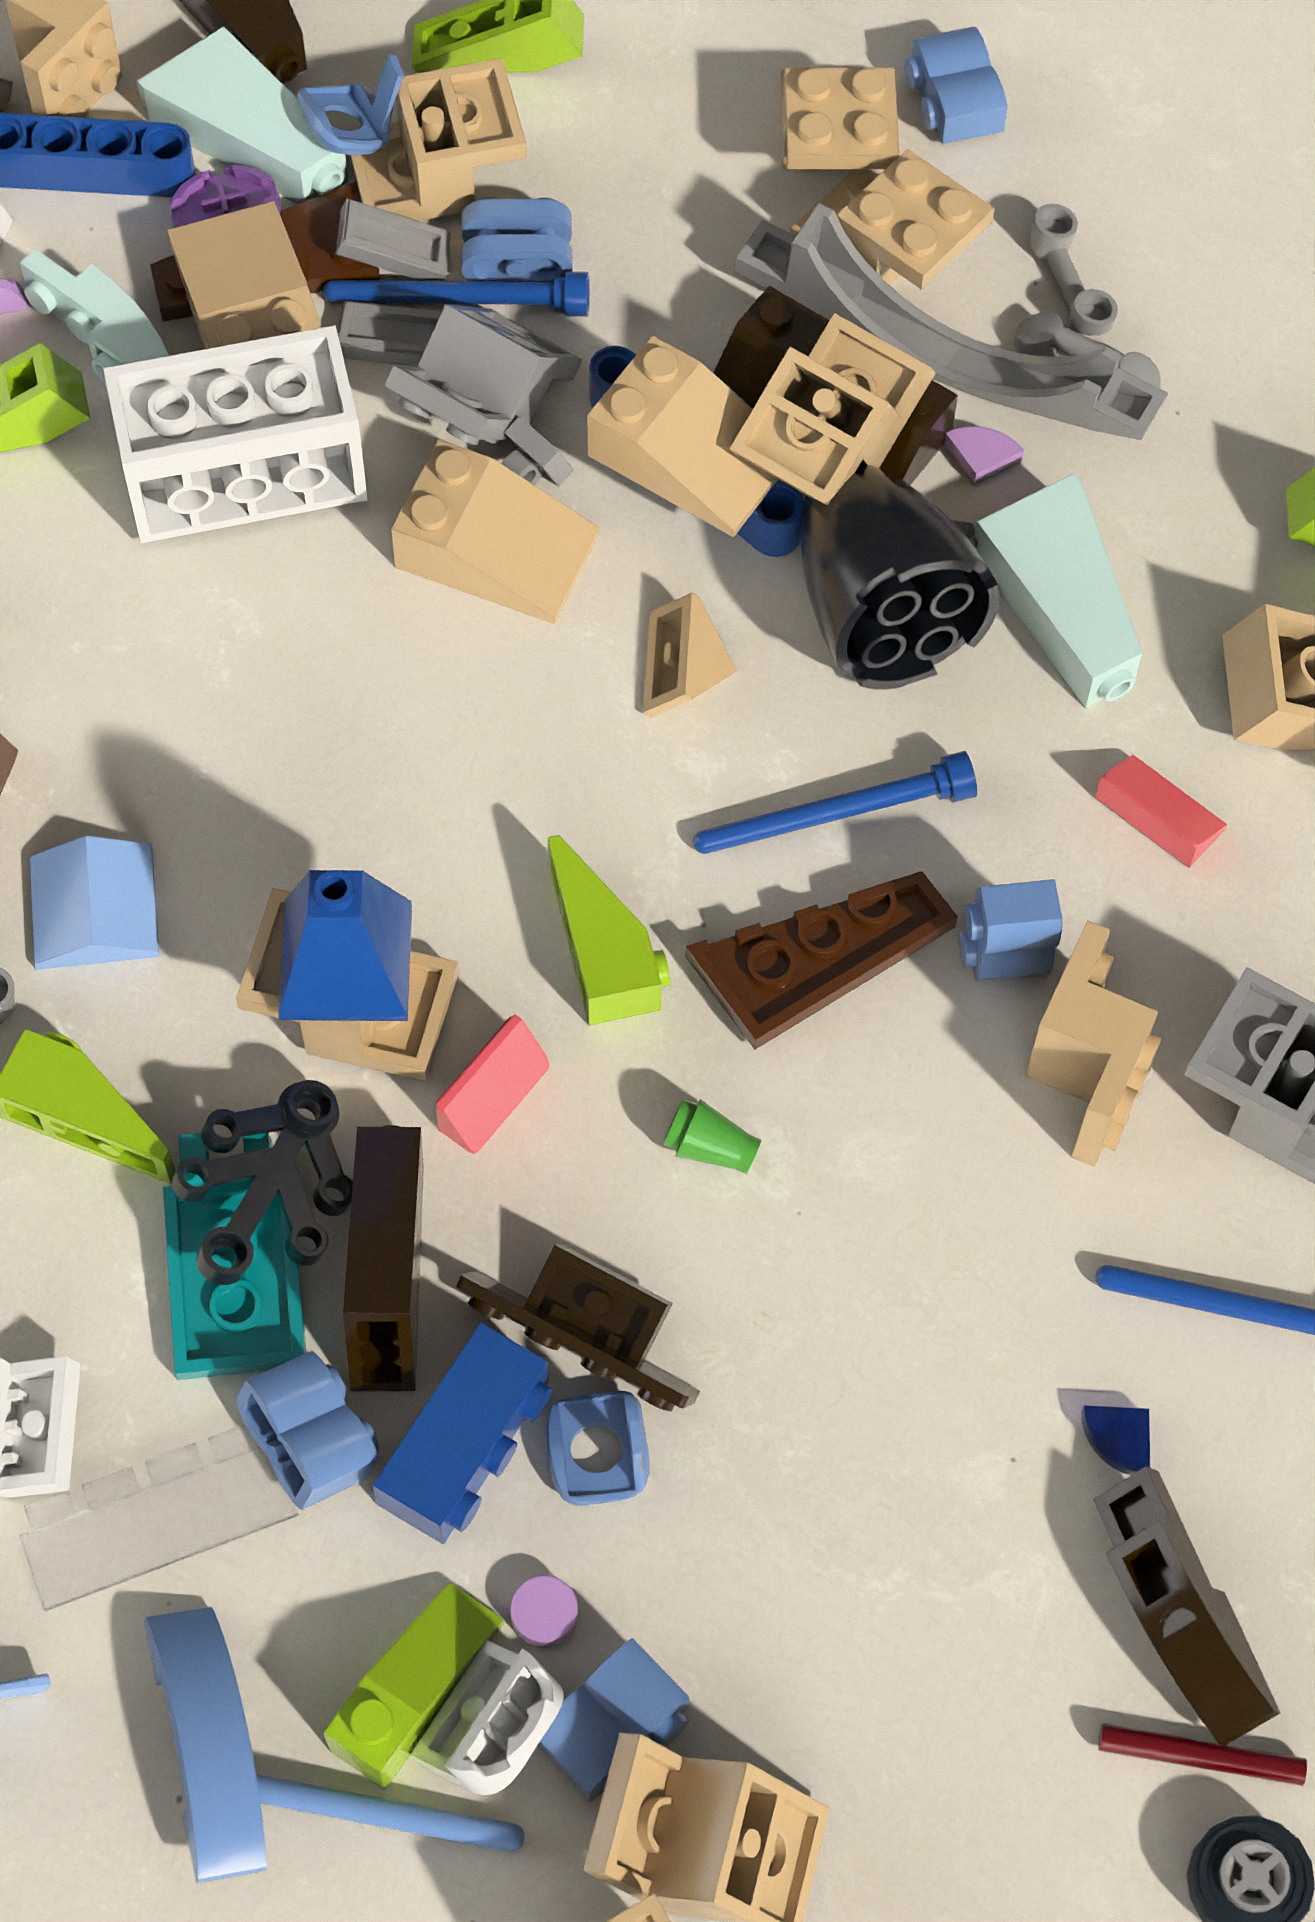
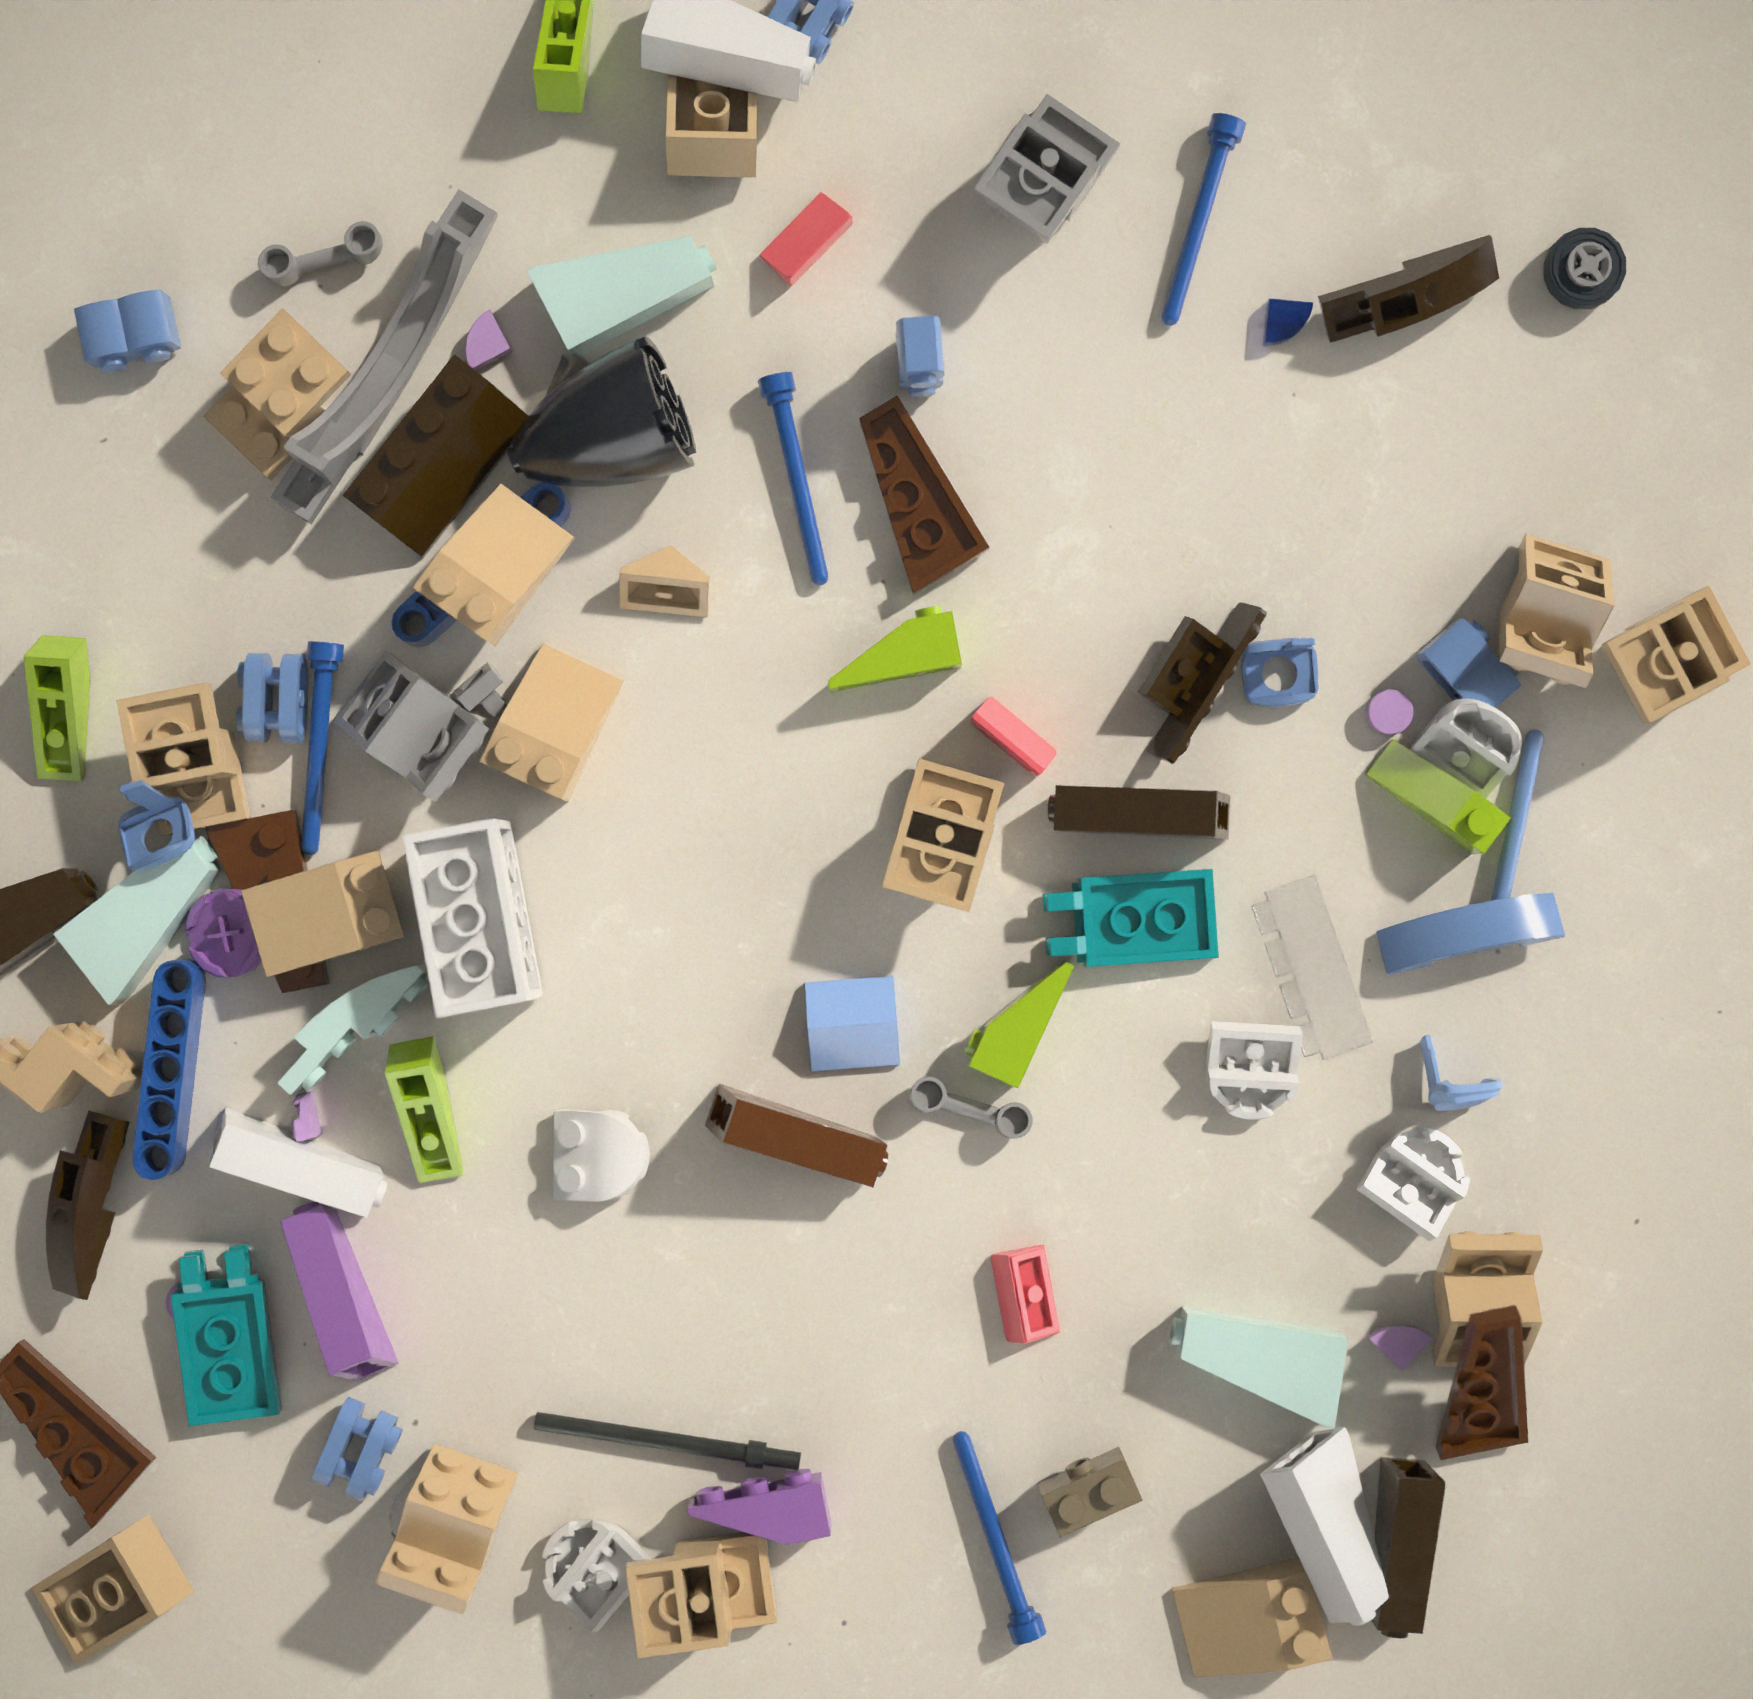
camera: 85 degrees left, 25 degrees up
(272, 1172) = (1088, 889): black plant -> none
(308, 1429) = (1267, 865): medium blue brick -> none
(345, 949) = (922, 849): blue slope -> none
(385, 332) = (354, 798): light grey tile -> none
(392, 242) = (271, 797): light grey tile -> none
(463, 1434) = (1272, 761): blue brick -> none
(710, 1137) = (1058, 587): bright green cone -> none
(832, 410) = (483, 450): tan bracket -> none
(838, 118) = (166, 429): tan bracket -> none
(1045, 334) = (377, 282): light grey bar -> none
(1094, 1045) = (1012, 305): tan bracket -> none
(1202, 1754) = (1499, 290): dark red bar -> none

